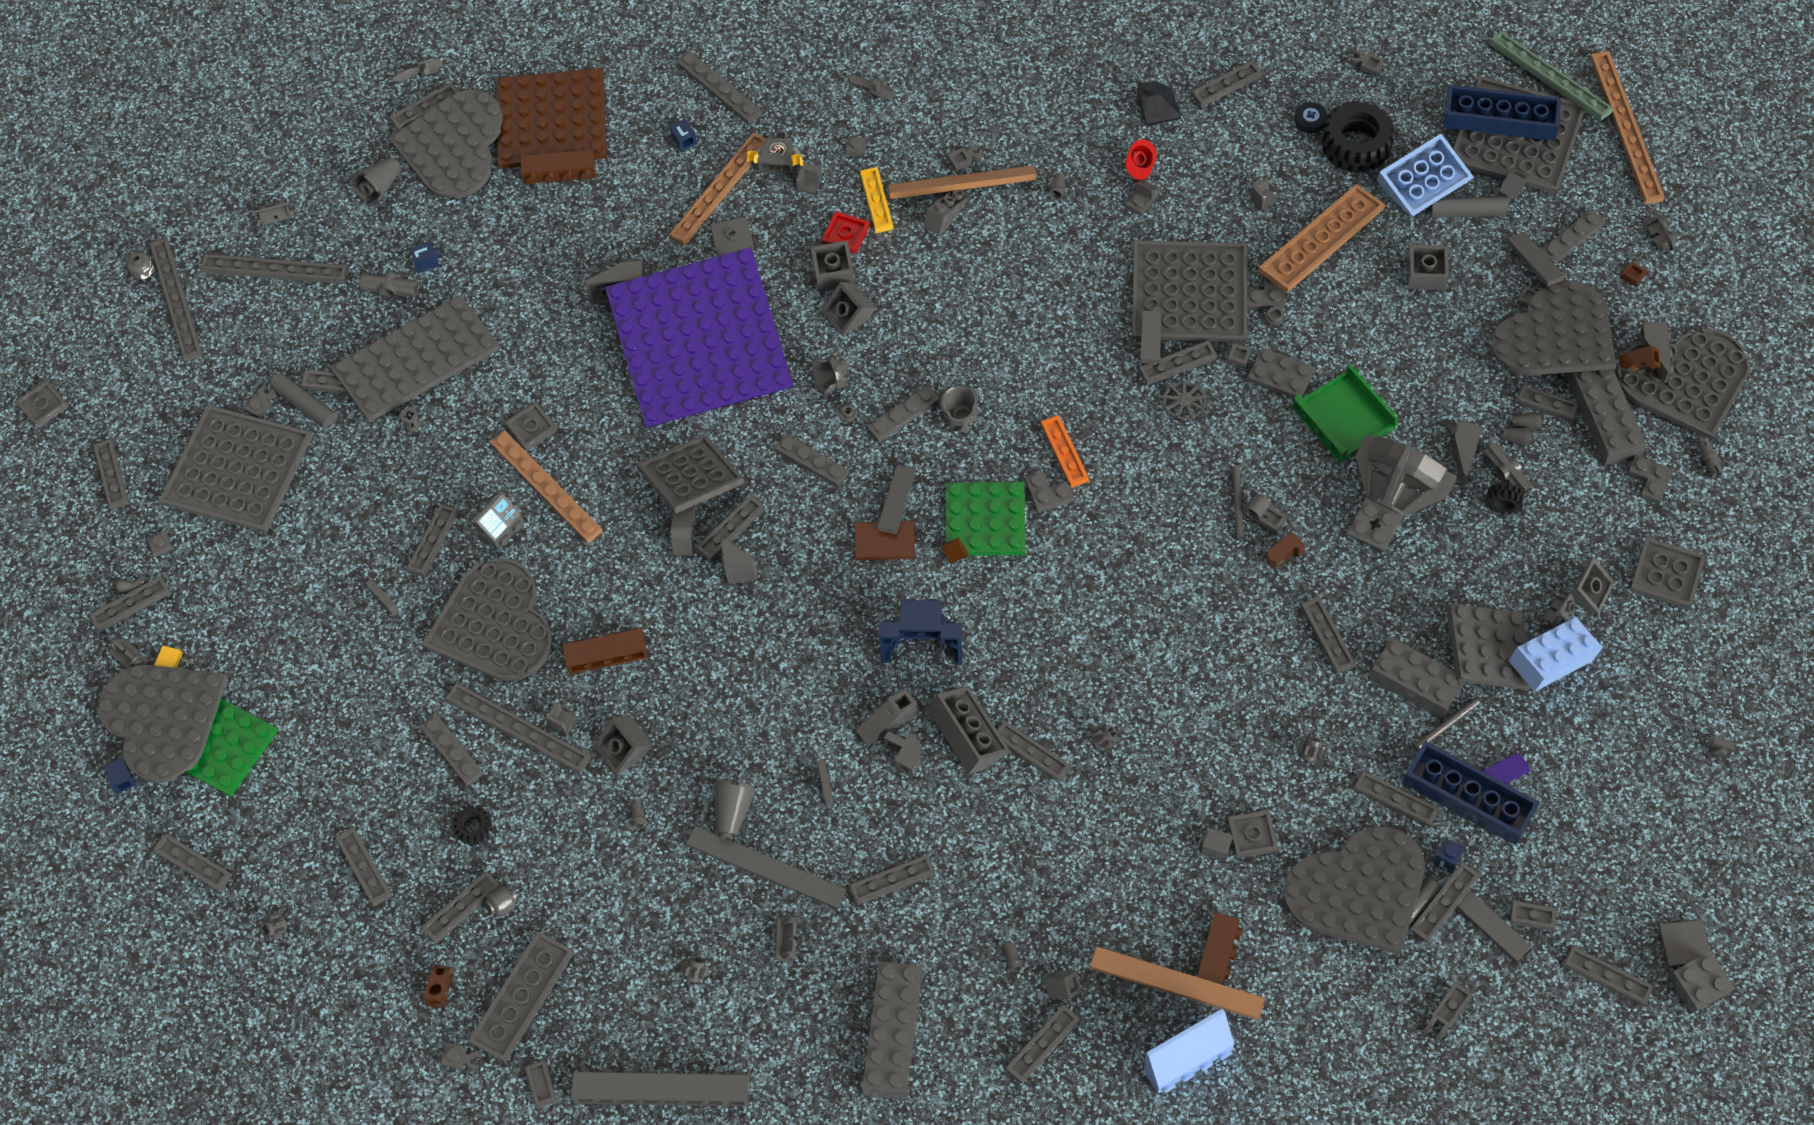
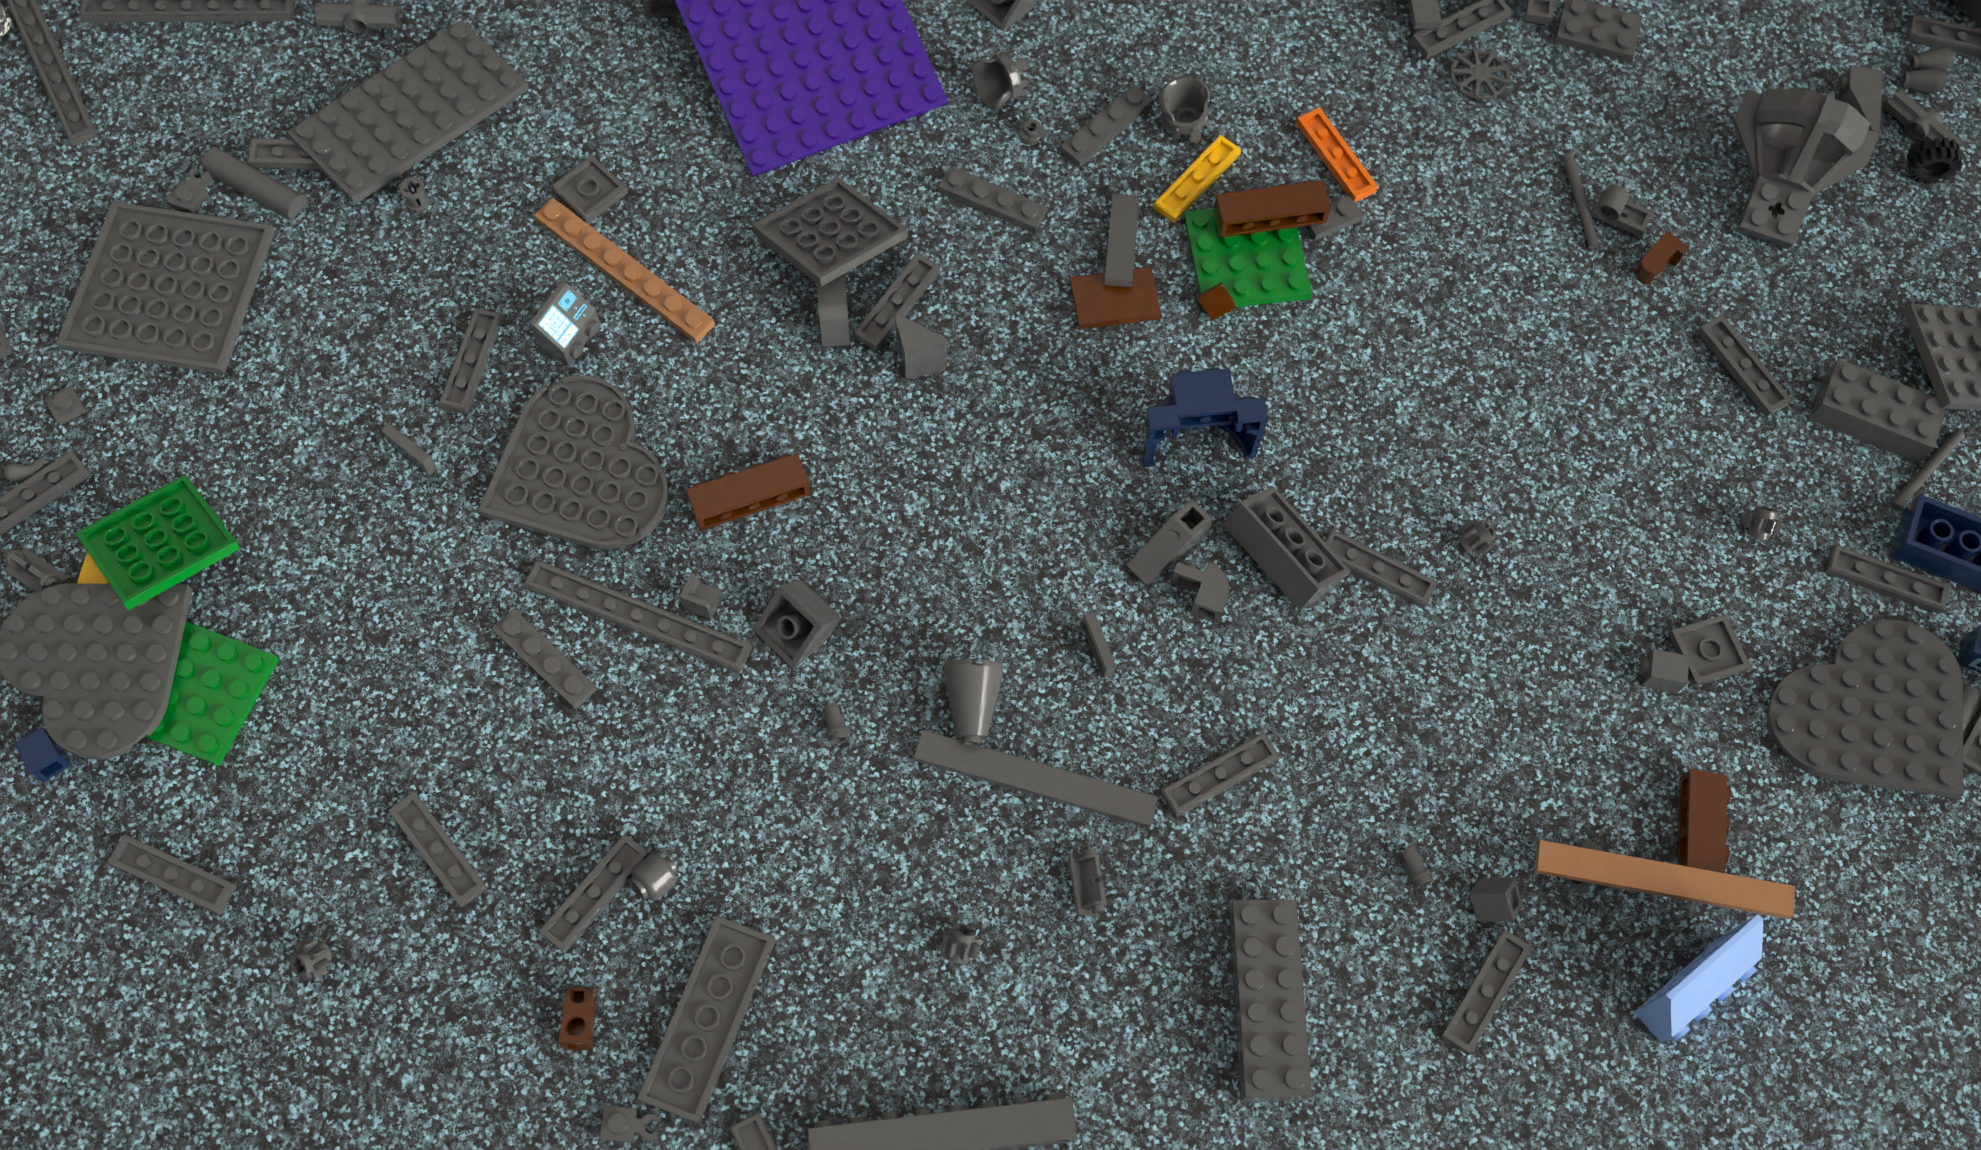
camera: 15 degrees left, 5 degrees up
(209, 643) = (157, 542): none -> green plate
(474, 836) = (583, 751): black tyre -> none
(961, 459) = (1197, 179): none -> yellow tile
(1005, 487) = (1271, 208): none -> reddish brown brick
(1345, 413) = (1695, 72): green panel -> none

